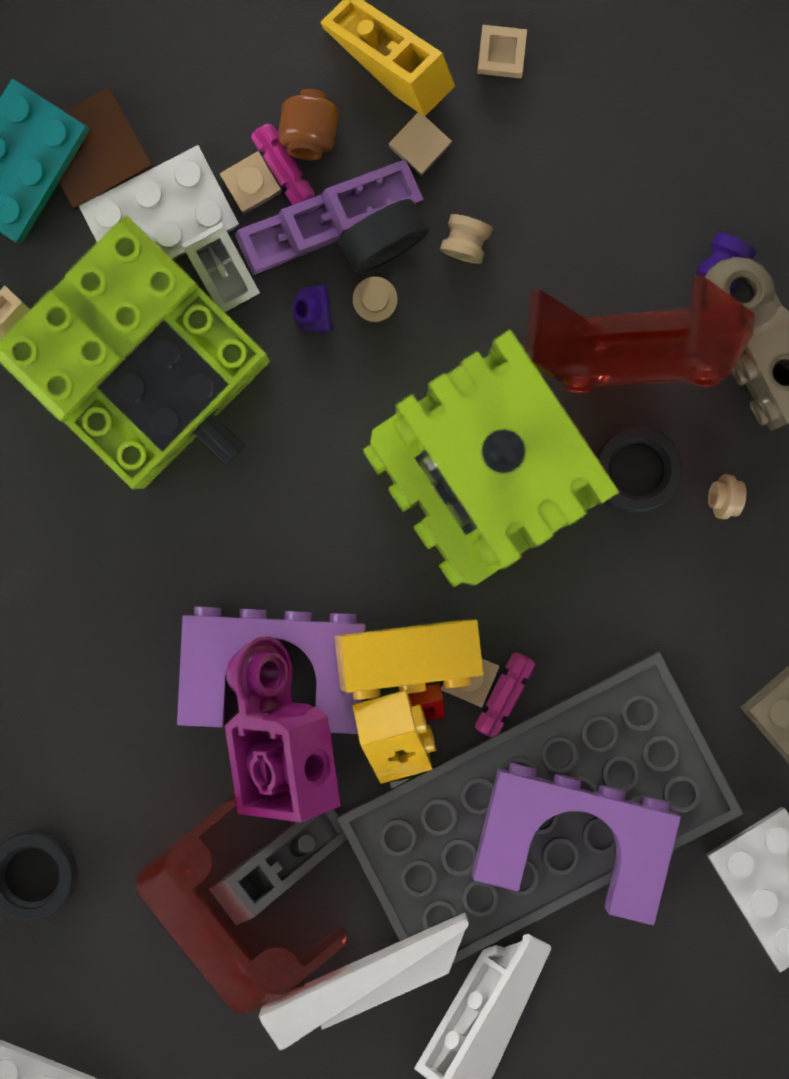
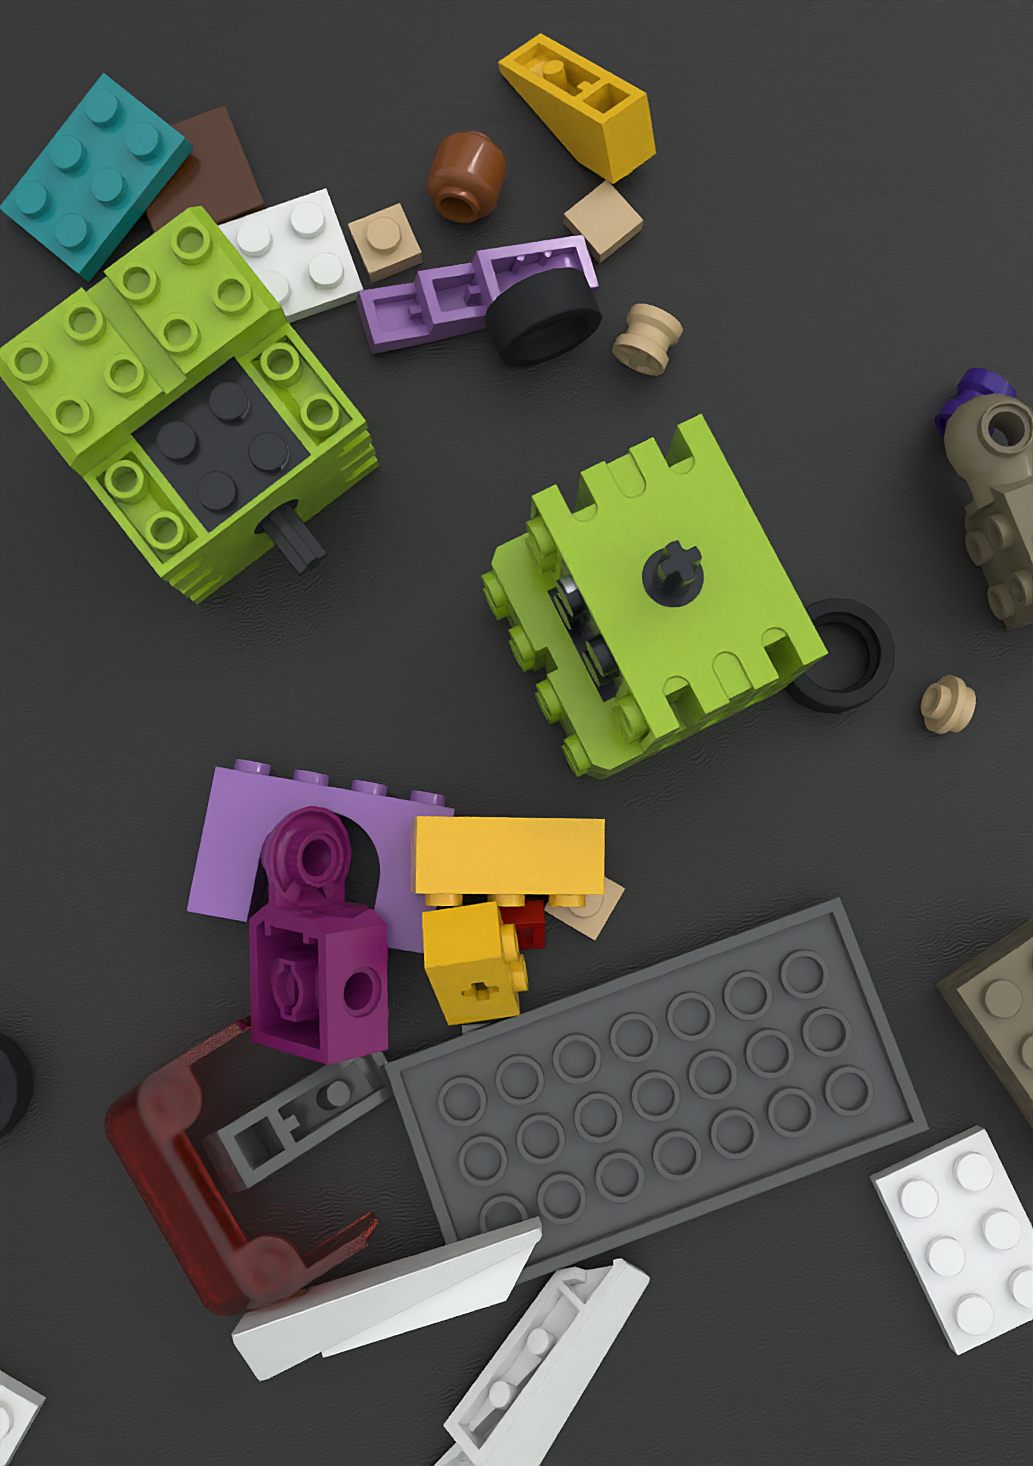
camera: 10 degrees right, 5 degrees down
(220, 267) = (331, 328): white slope -> none
(282, 164) = (426, 221): dark pink axle -> none
(312, 309) = (442, 405): dark purple plate -> none
(375, 299) = (522, 401): tan plate -> none
(502, 51) = (719, 121): tan plate -> none
(505, 695) = (627, 928): dark pink axle -> none
(640, 347) = (881, 487): clear red windscreen -> none
(641, 834) = (792, 1137): medium lavender arch -> none

